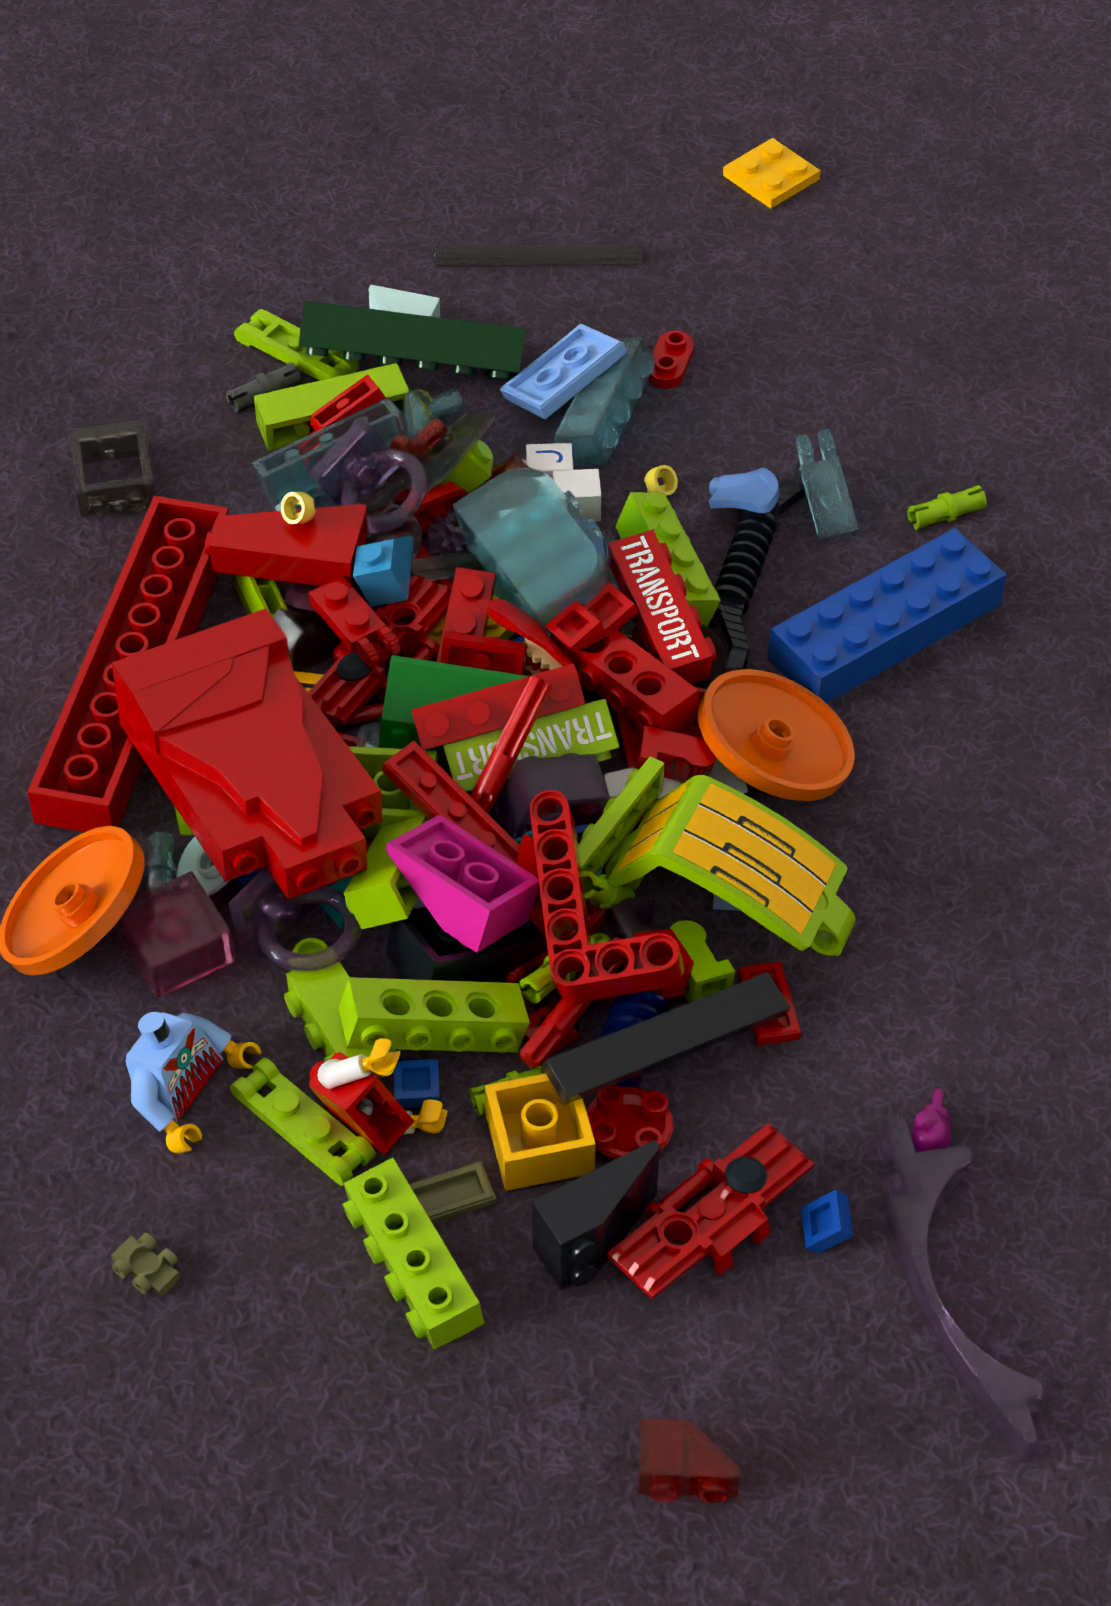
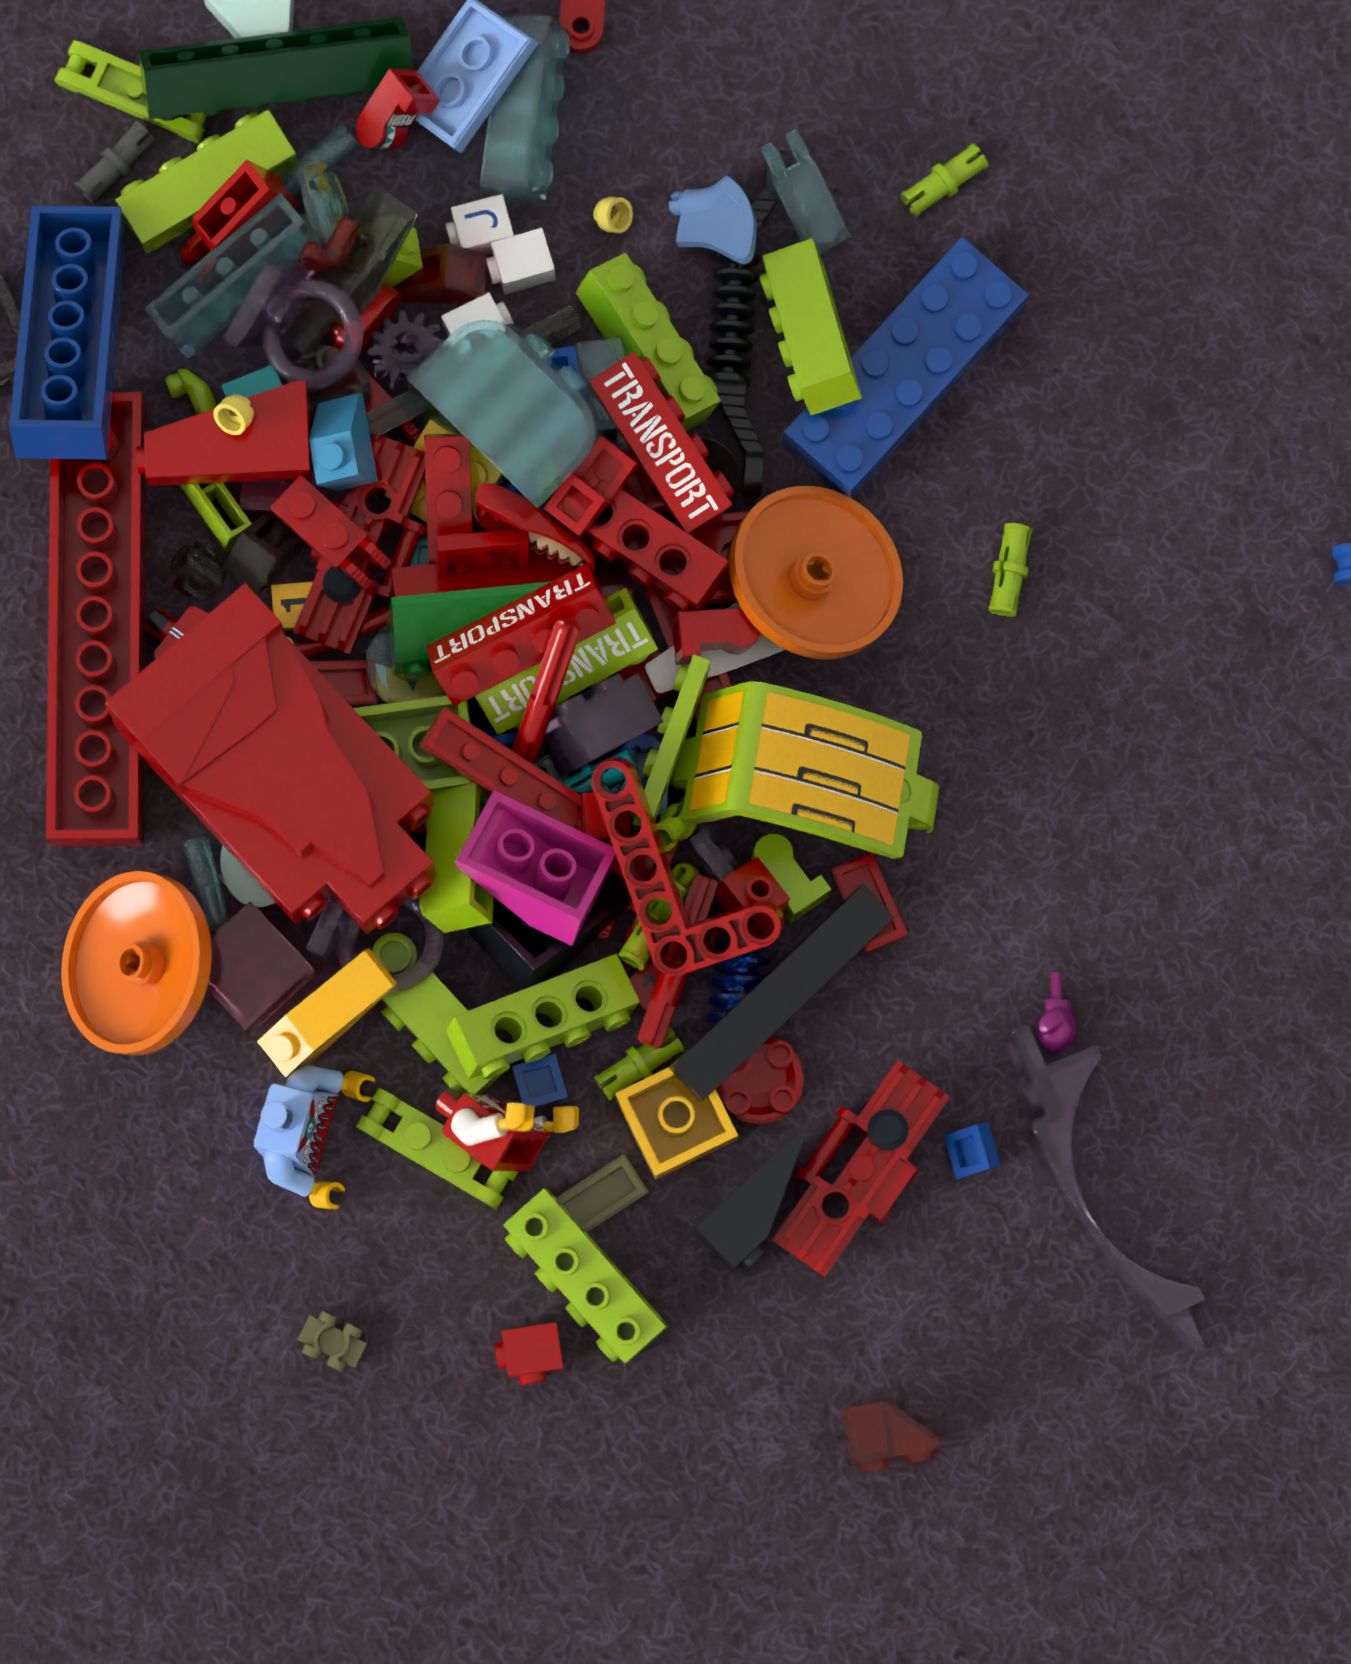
camera: 15 degrees left, 30 degrees up
(180, 456) = (68, 333): none -> blue brick
(232, 974) = (327, 1013): none -> yellow slope
(338, 1309) = (530, 1352): none -> red brick
(498, 381) = (394, 109): none -> red leg
(809, 561) = (810, 327): none -> lime brick
(953, 776) = (1010, 569): none -> lime pin

